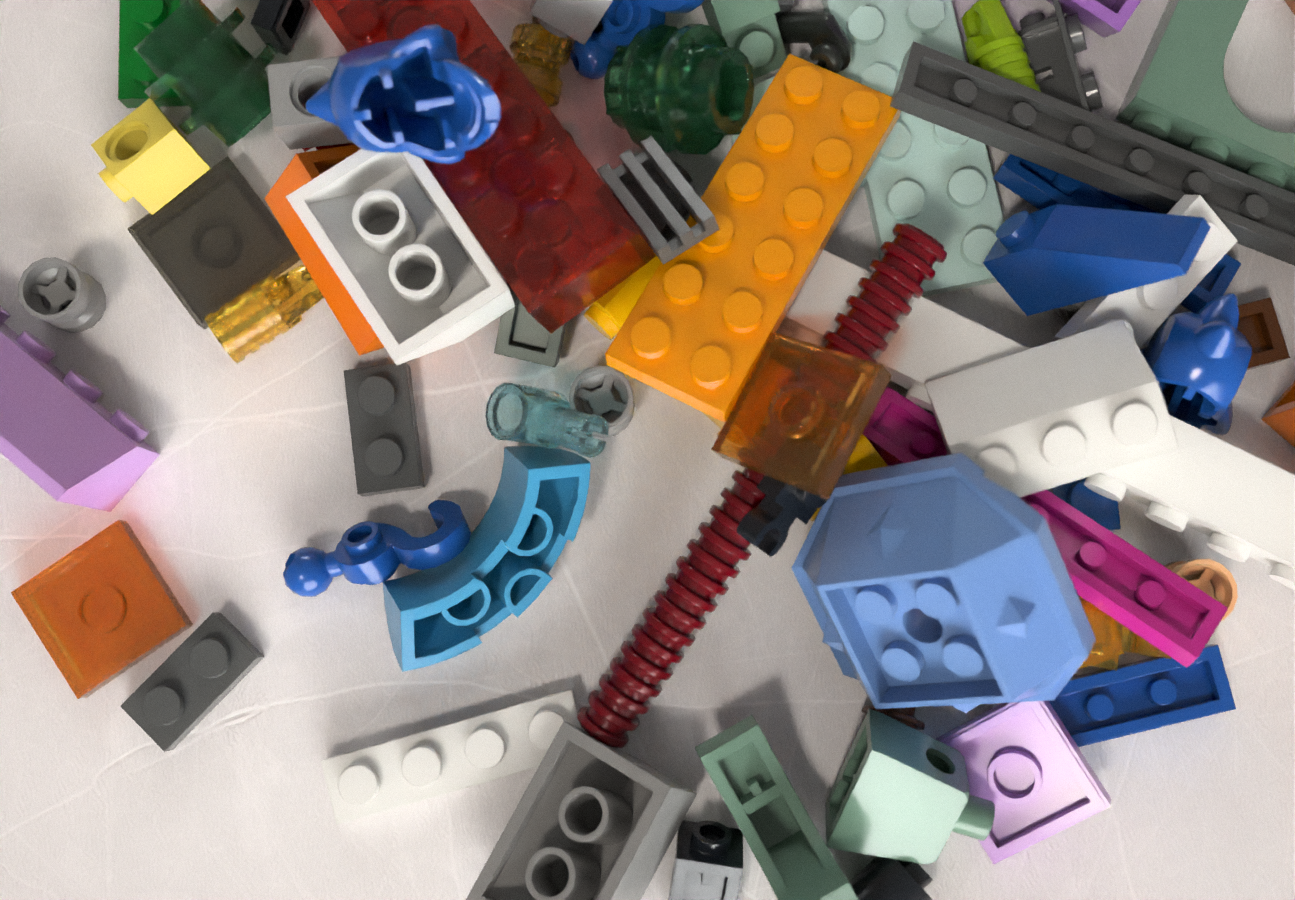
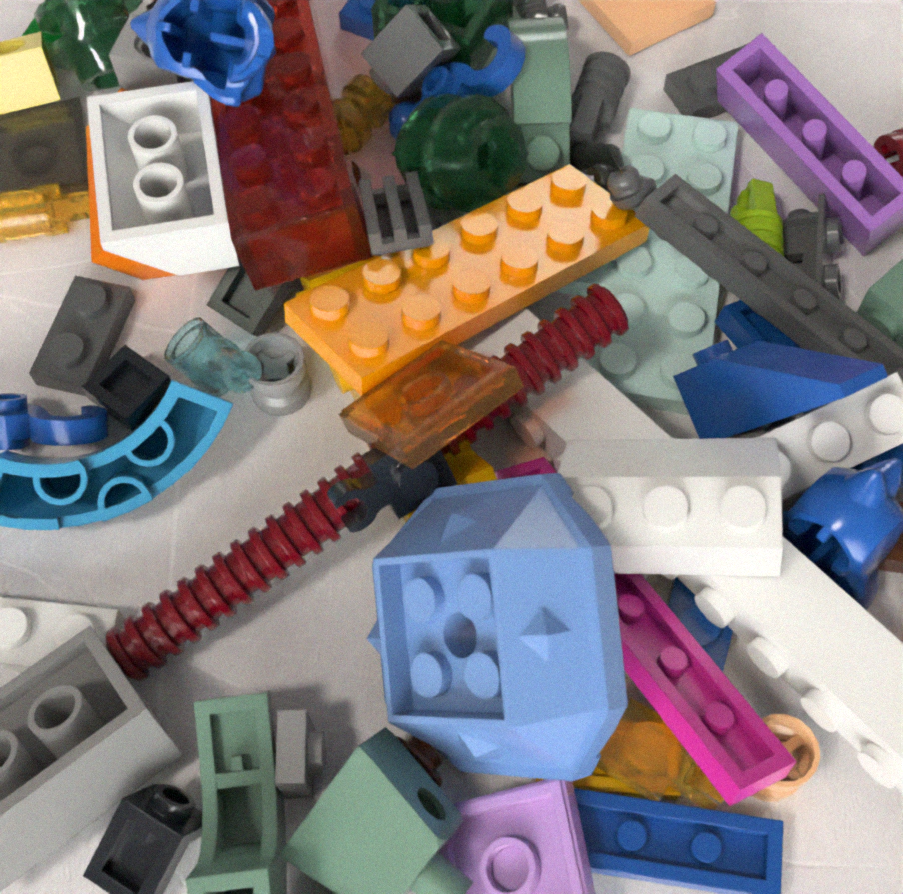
camera: 20 degrees right, 20 degrees down
(463, 470) = (127, 387): none -> black plate
(797, 752) = (298, 754): none -> light grey plate
(872, 73) = (629, 187): none -> dark grey arm

